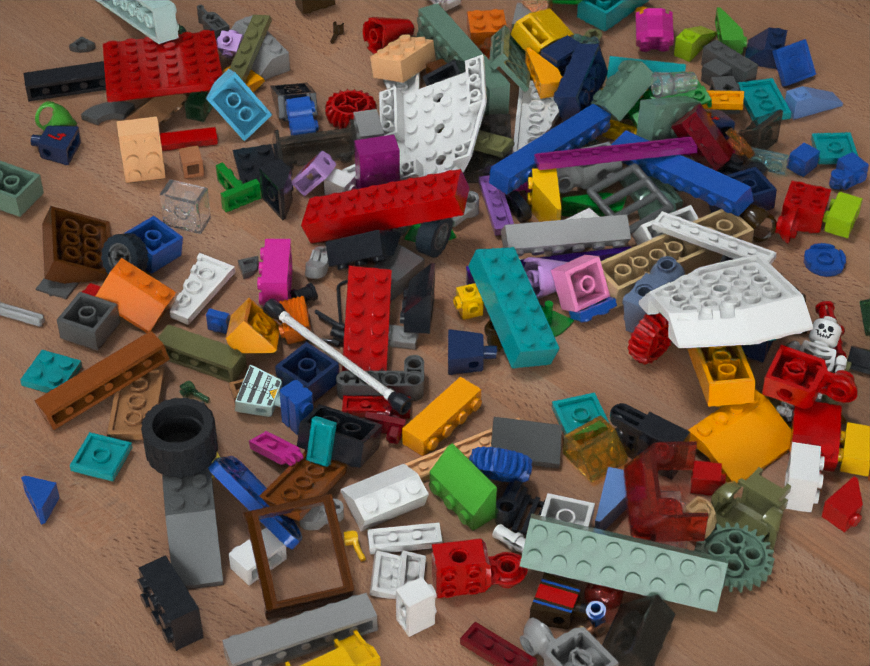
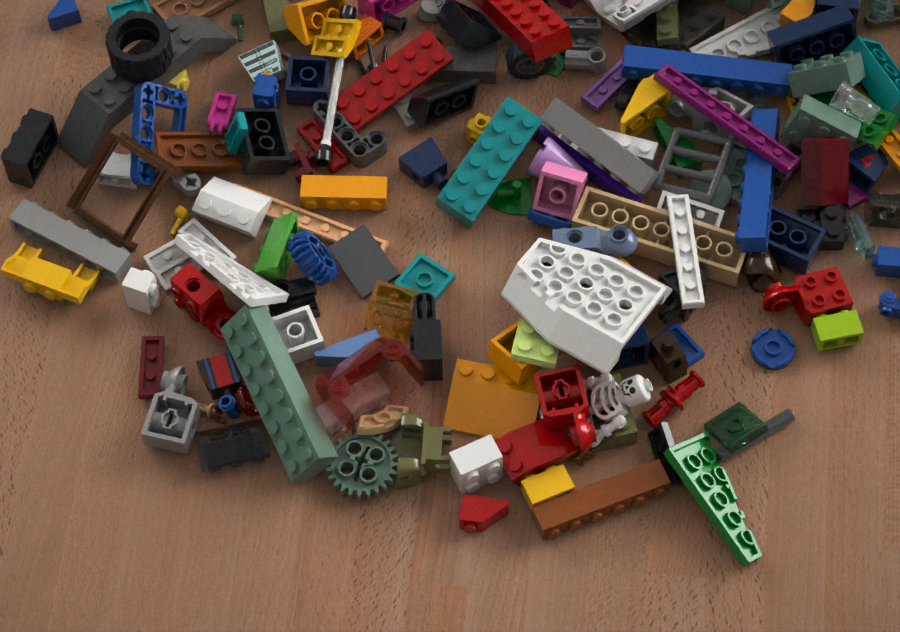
camera: 55 degrees right, 15 degrees up
(293, 325) = (336, 38): none -> yellow slope
(467, 525) = (240, 280): none -> white wing
(706, 477) = (429, 401): red brick -> none
(738, 360) = (532, 347): none -> yellowish green plate
(739, 144) = (849, 201): clear orange plate -> none

